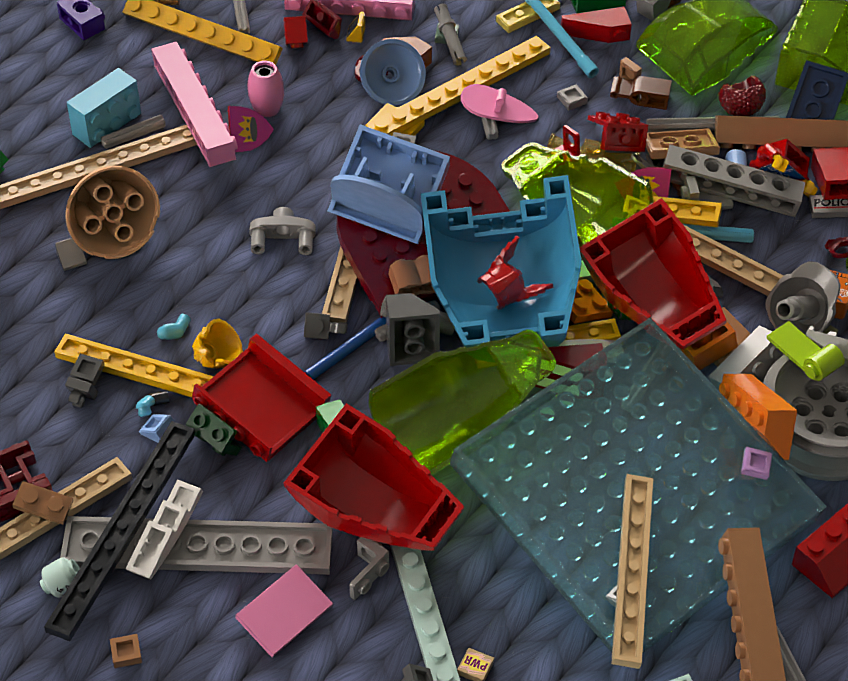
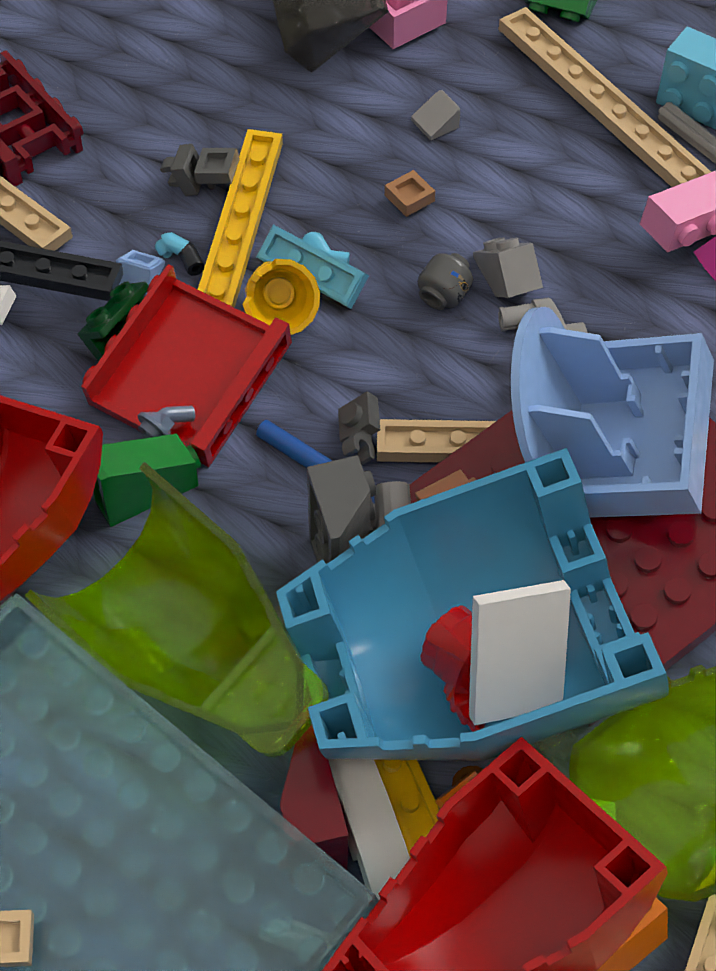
camera: 80 degrees right, 5 degrees up
(112, 212) = (495, 116): light nougat cone -> none
(138, 277) = (410, 193): none -> medium nougat plate
(184, 335) = (332, 275): none -> medium azure tile
(218, 237) = (509, 266): none -> light grey slope
(220, 269) = (445, 281): none -> dark grey head
(305, 415) = (160, 422): none -> sand blue plate
(526, 245) = (518, 650): none -> white tile

